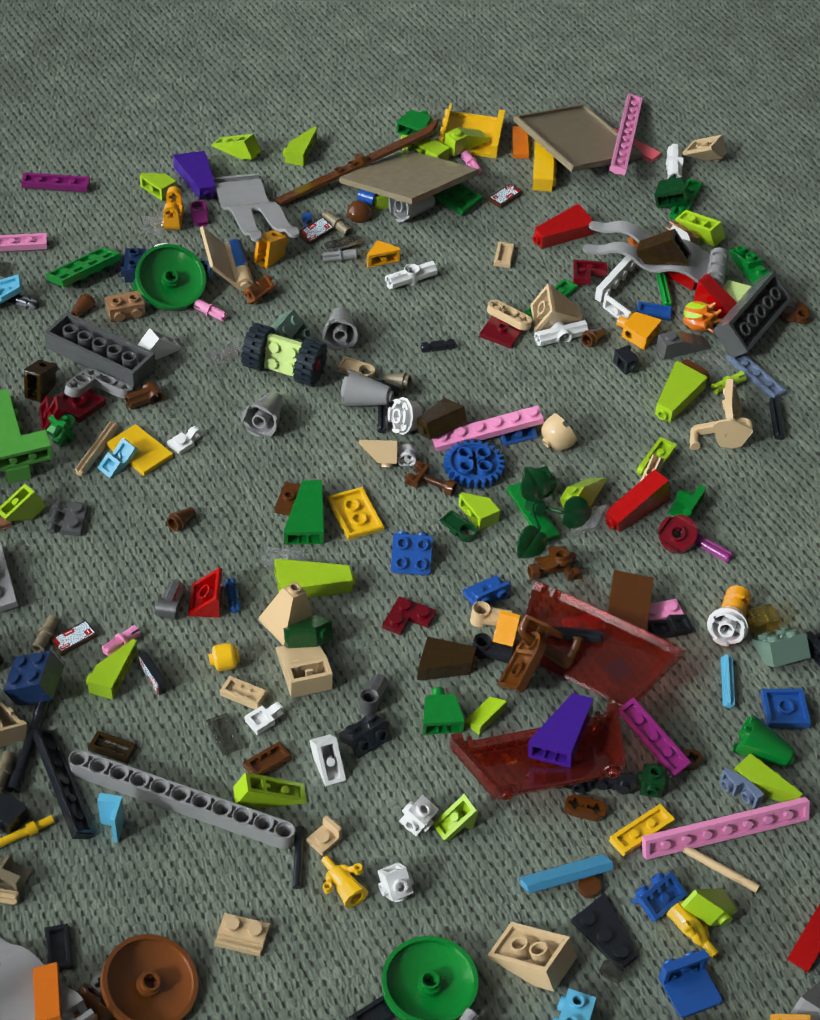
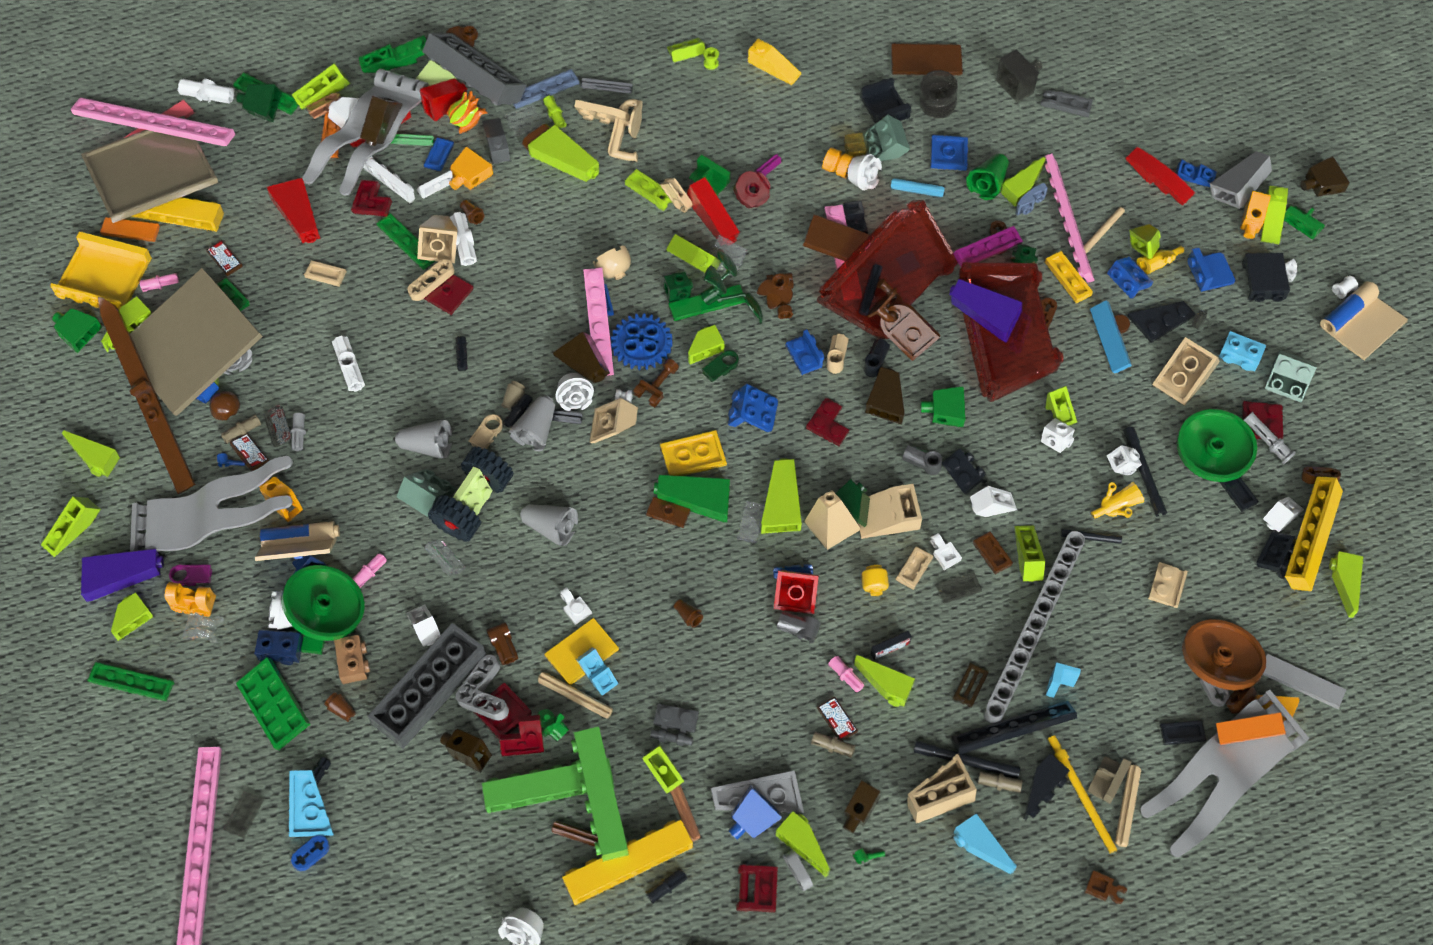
camera: 80 degrees left, 15 degrees up
(34, 678) = (899, 749): dark blue brick -> none
(55, 182) = (93, 739): magenta plate -> none
(104, 195) = (130, 681): none -> green tile
(265, 286) = (349, 515): dark orange hinge -> none
(325, 836) = (1072, 512): tan bracket -> none
(382, 254) = (306, 388): light orange slope -> none
(425, 900) = (1155, 499): none -> black piece
(464, 139) = (123, 279): lime slope -> none
(485, 714) = (945, 372): lime slope -> none
(506, 628) = (866, 340): light orange slope -> none
(626, 360) = (513, 189): black brick -> none
(707, 148) = (190, 56): tan slope -> none

